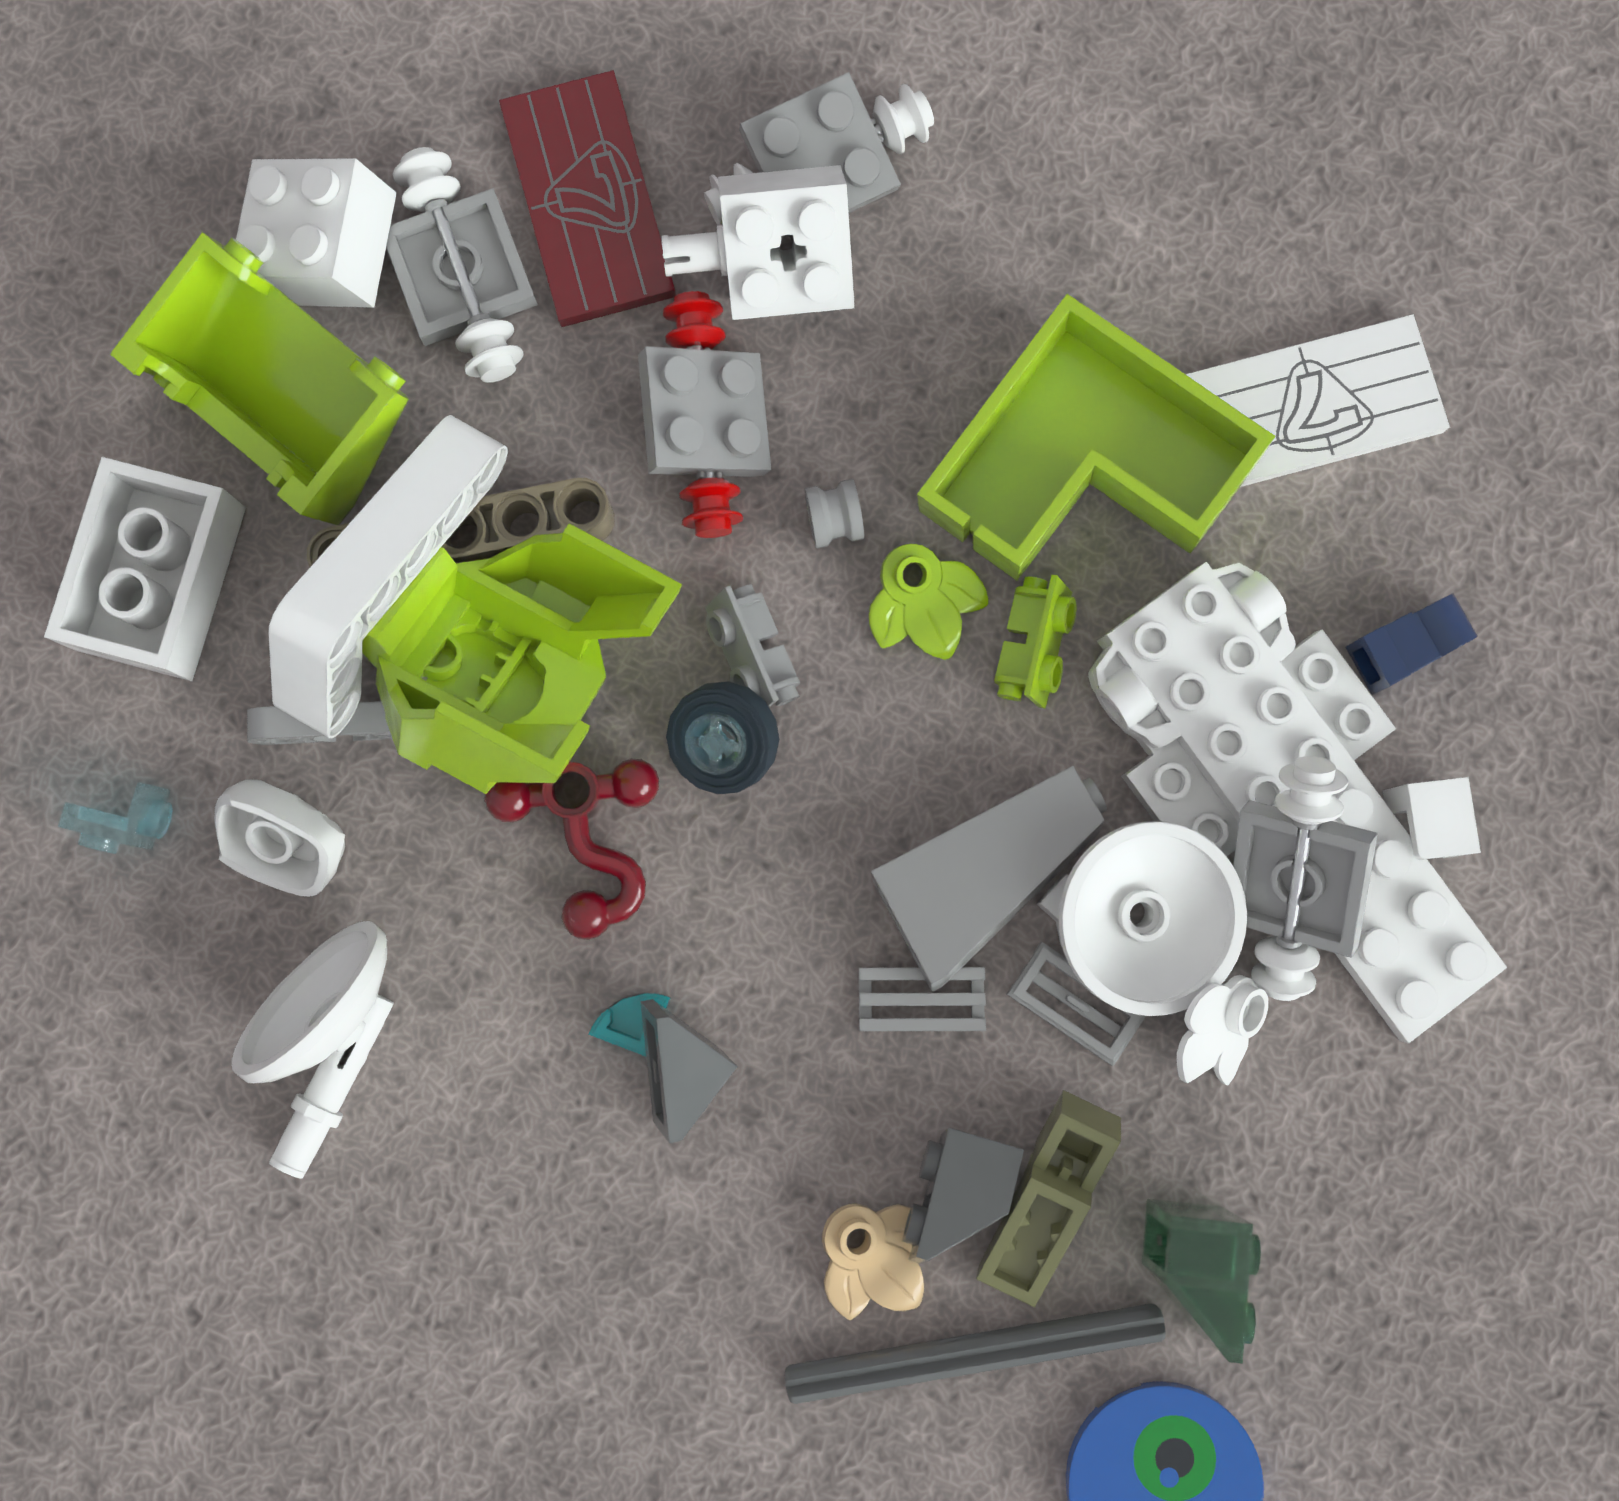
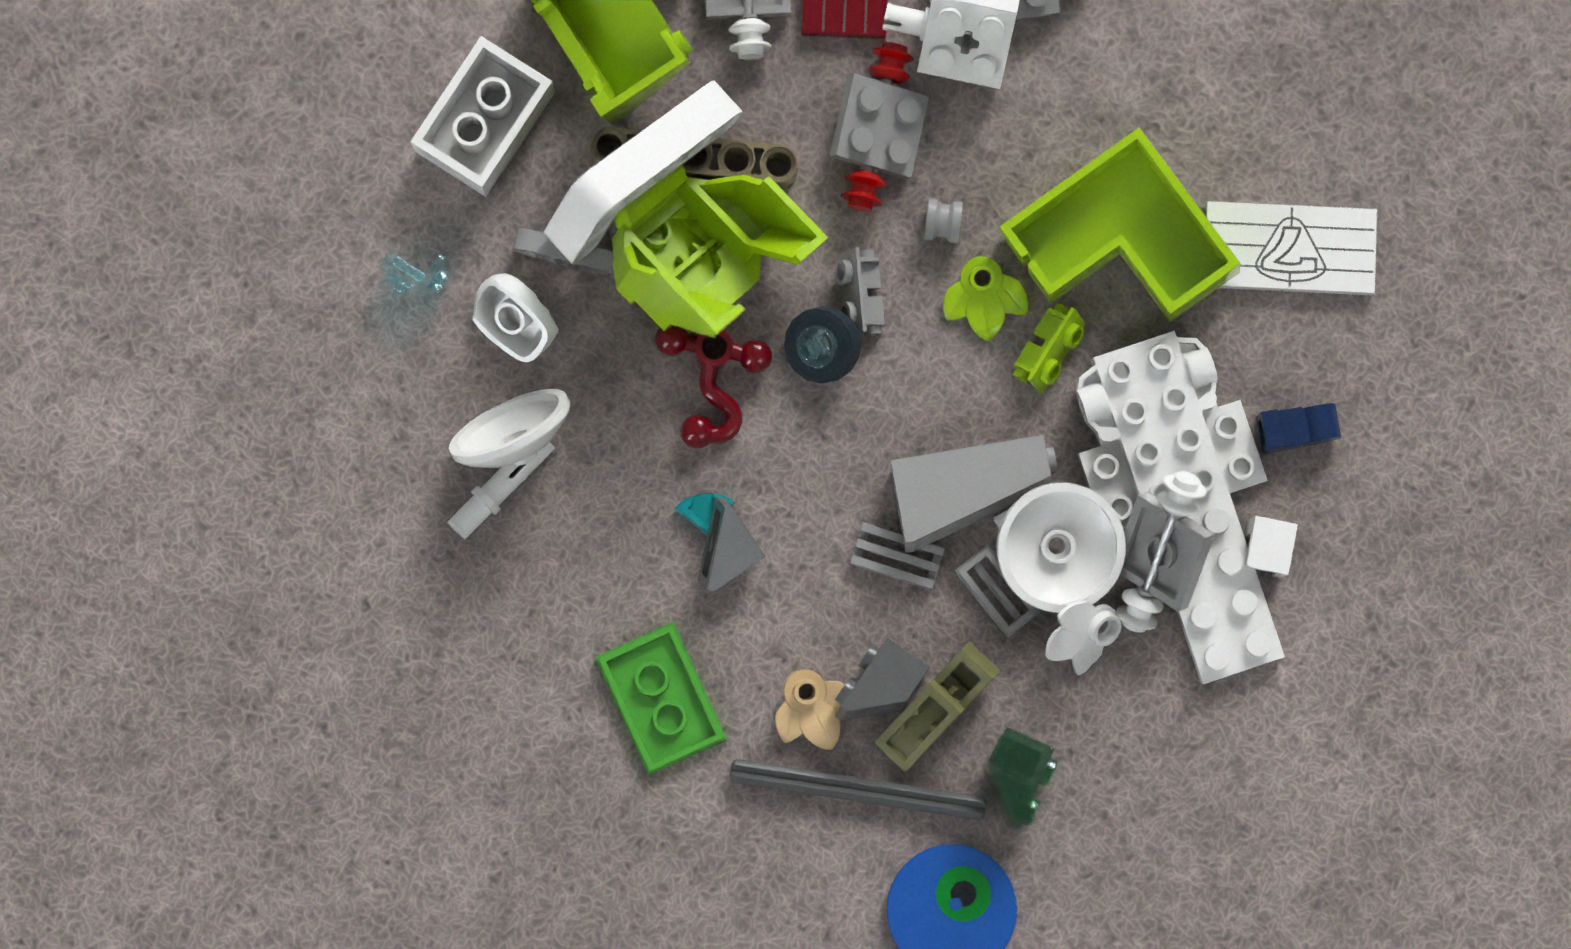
camera: 20 degrees right, 0 degrees up
(654, 1314) = (661, 698): none -> bright green tile

